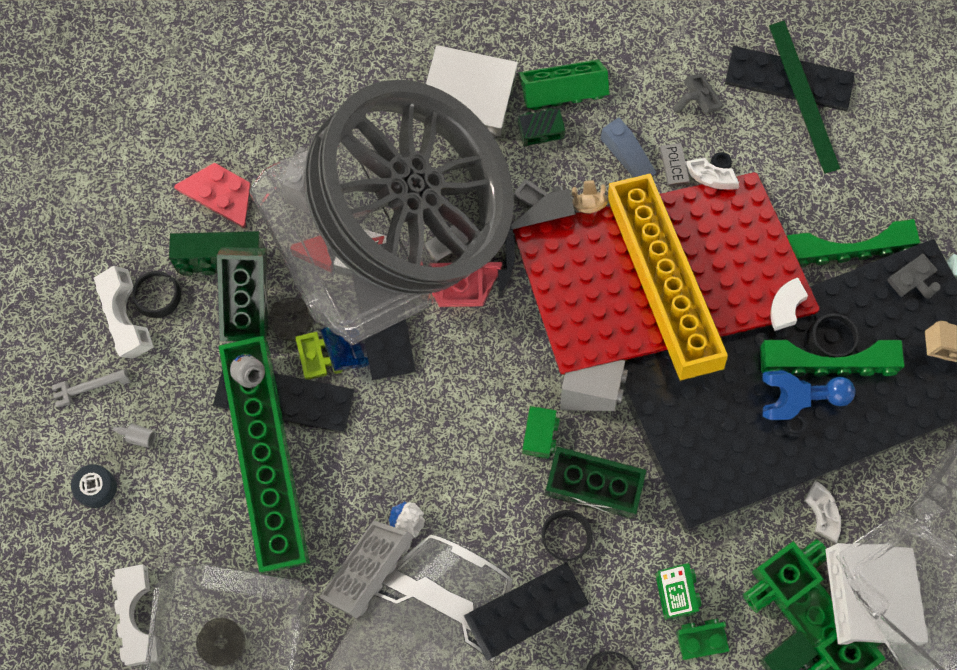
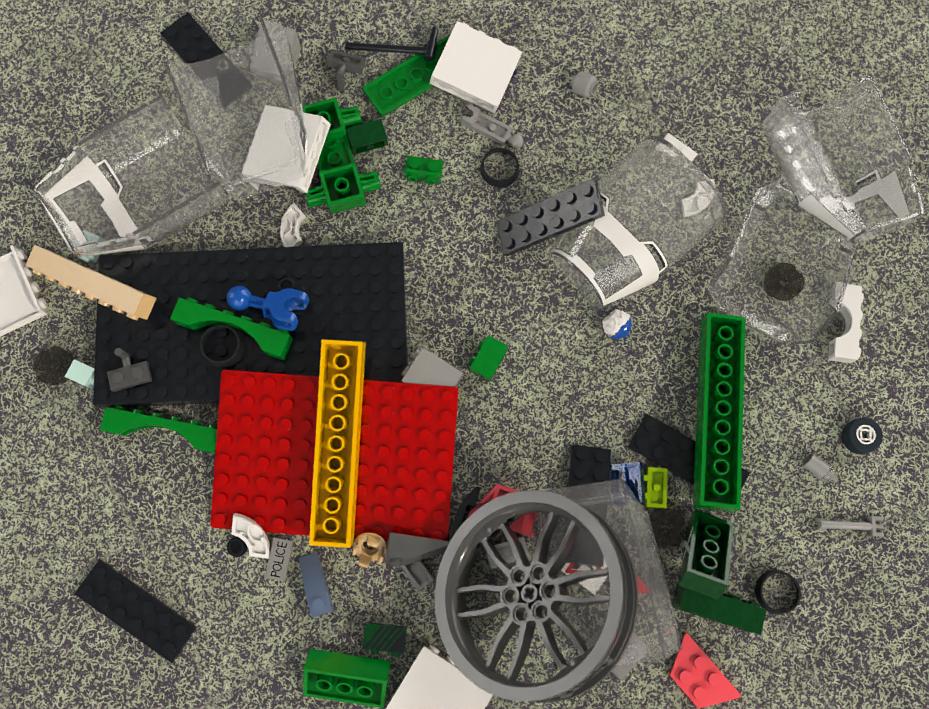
camera: 160 degrees left, 5 degrees up
(114, 289) = (816, 604): white arch -> none
(247, 370) = (722, 472): light grey head -> none
(366, 568) = (663, 289): light grey plate -> none
(569, 513) = (501, 256): black tyre -> none
(595, 482) = (460, 302): dark green brick -> none
(678, 591) = (429, 202): slope -> none
(701, 92) = (223, 620): dark grey plate -> none
(785, 304) = (247, 382): white tile -> none
(804, 97) = (132, 586): dark green piece -> none

